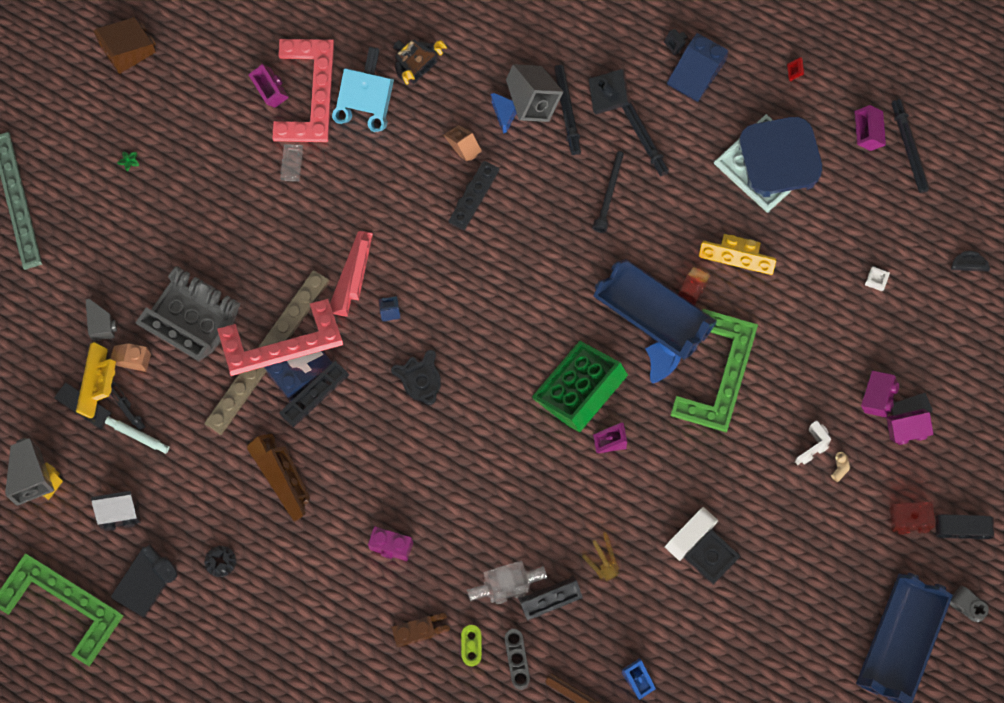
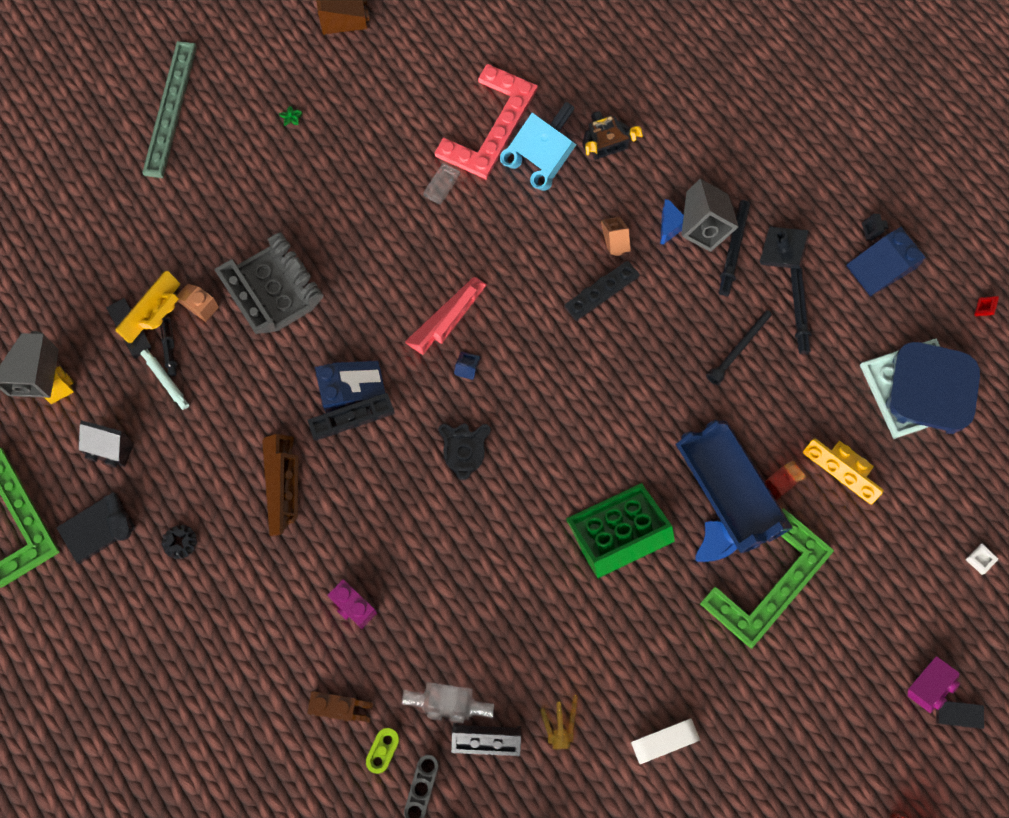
camera: 20 degrees right, 0 degrees up
(99, 322) = (183, 255): dark grey slope -> none
(268, 85) = (454, 101): magenta brick -> none
(281, 331) = (330, 353): dark tan plate -> none
(326, 338) = (295, 352): coral plate -> none
(611, 439) = (626, 600): magenta slope -> none
(712, 557) = (676, 776): black tile -> none
(821, 435) = (850, 698): white bracket -> none
(842, 466) = (859, 743): tan arm -> none
(909, 426) = (952, 735): magenta brick -> none

